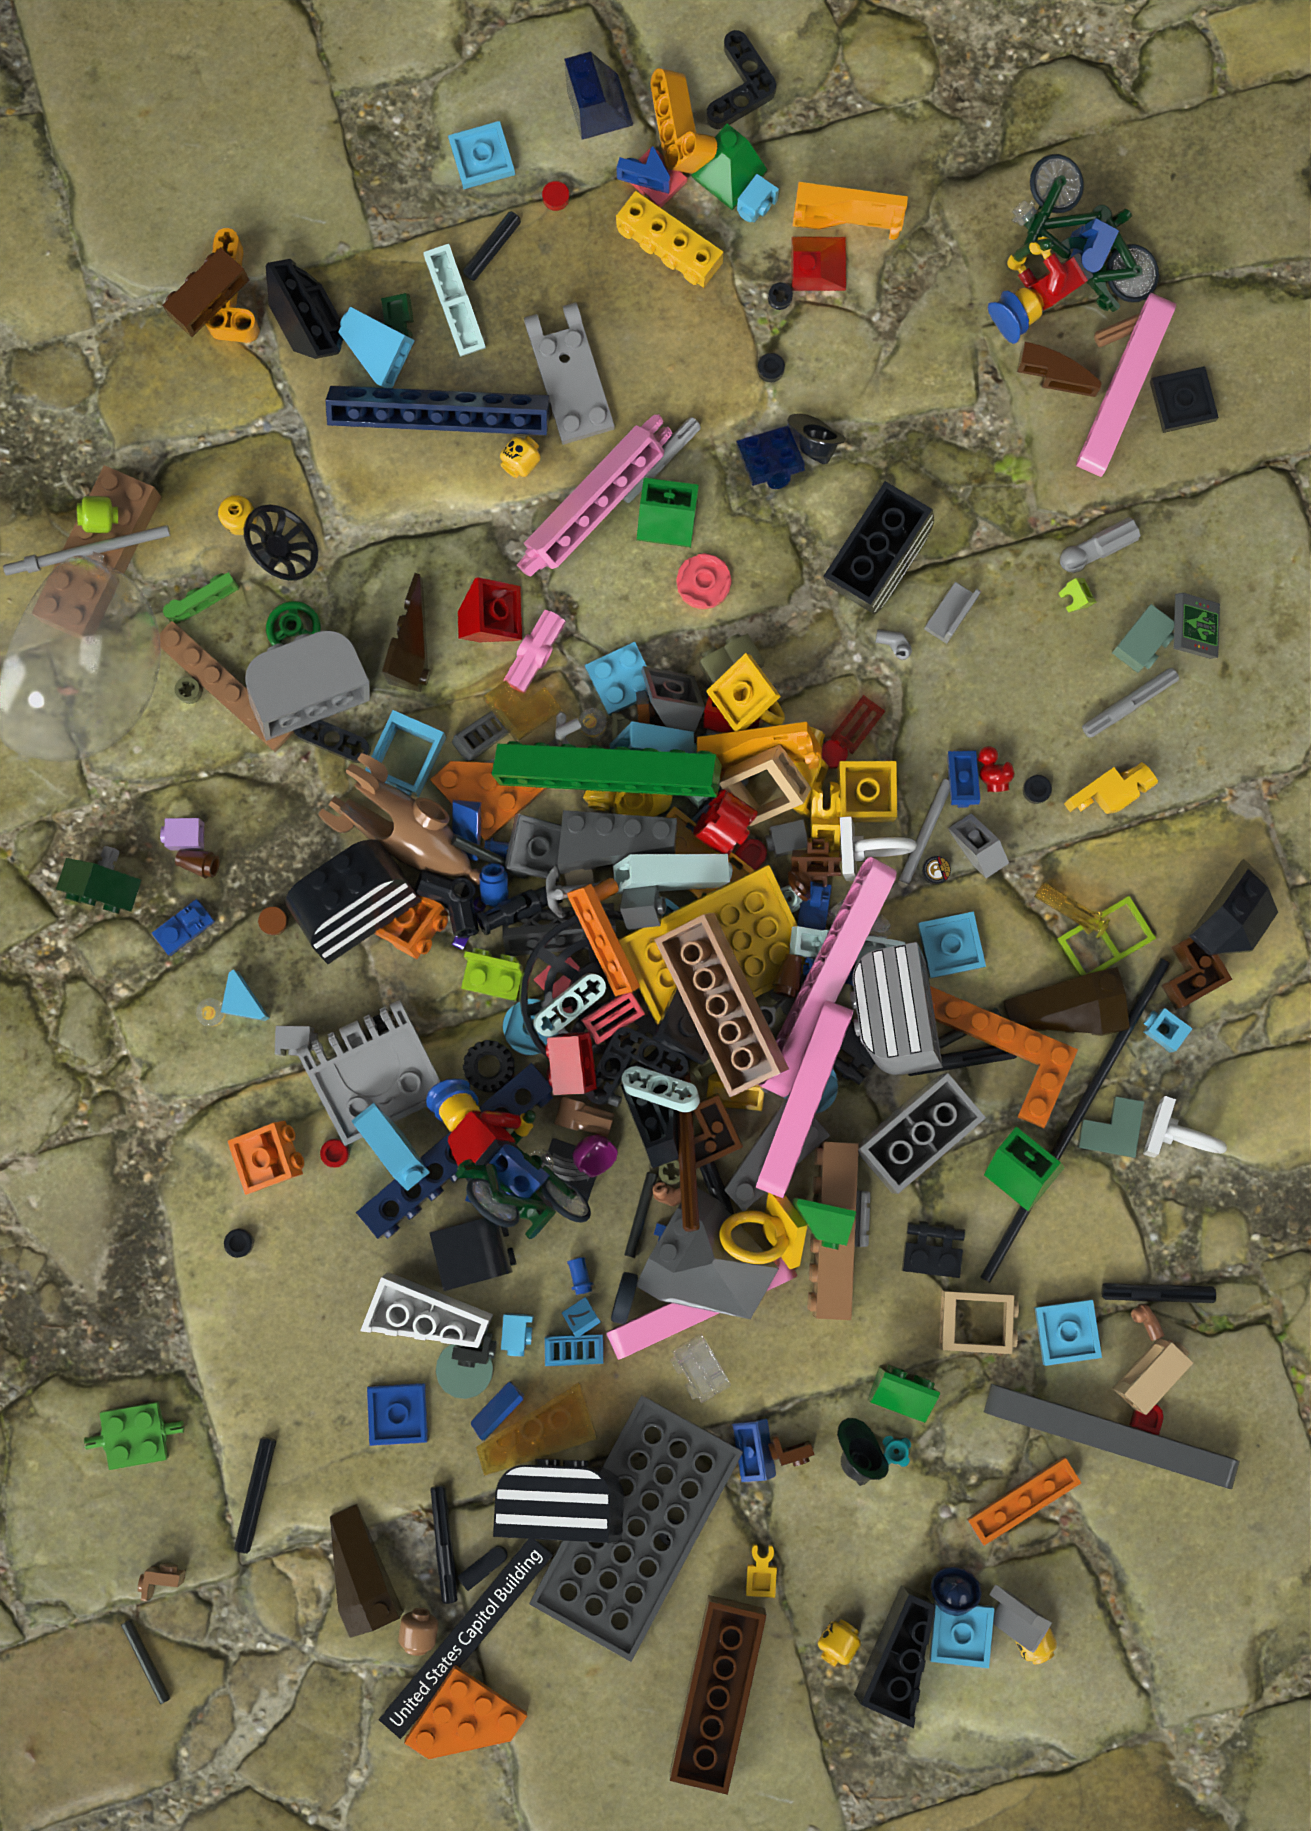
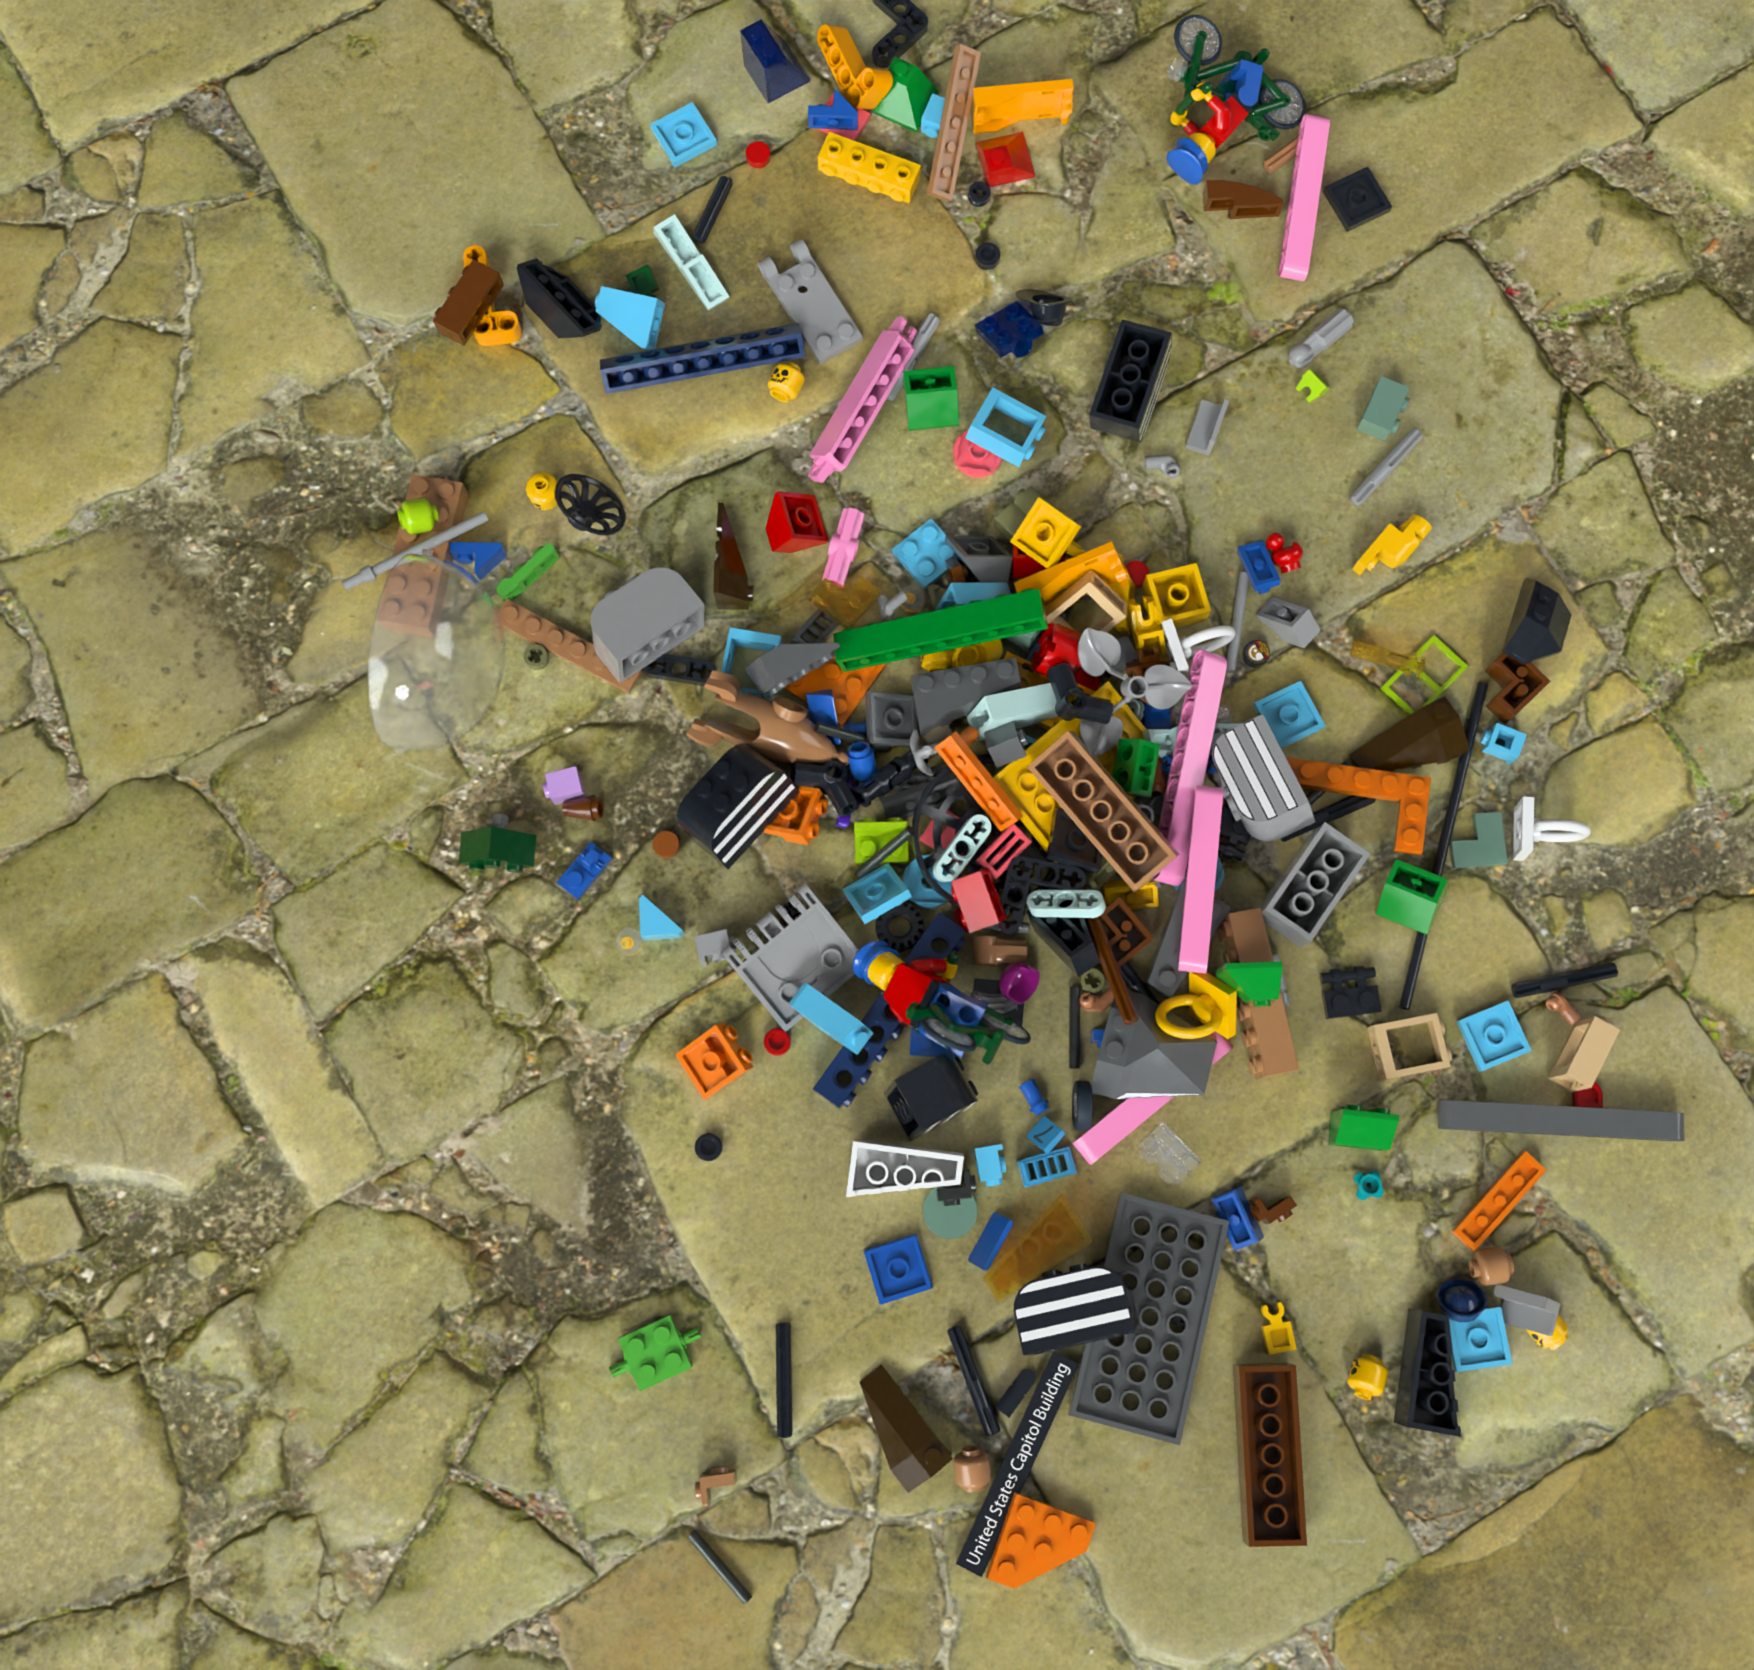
camera: 15 degrees left, 5 degrees down
(161, 569) = (484, 554): none -> blue slope
(289, 618) = (613, 571): green piece -> none
(430, 766) = (788, 664): none -> dark grey slope
(473, 1027) = (876, 893): none -> medium azure plate
(491, 987) = (885, 851): none -> pearl dark grey bar
(722, 579) = (995, 442): none -> medium azure window
(735, 890) = (1067, 692): none -> black piece
(770, 212) = (953, 123): none -> medium nougat plate
(771, 964) = (1136, 766): none -> green brick
(820, 890) = (1160, 686): none -> light grey plant
(845, 741) = (1144, 559): clear red tile -> none
(861, 1455) = (1338, 1195): black piece -> none
(996, 1565) = (1491, 1266): none -> medium nougat head
(1037, 789) = (1325, 561): black tile -> none
(1196, 625) = (1425, 386): tile -> none

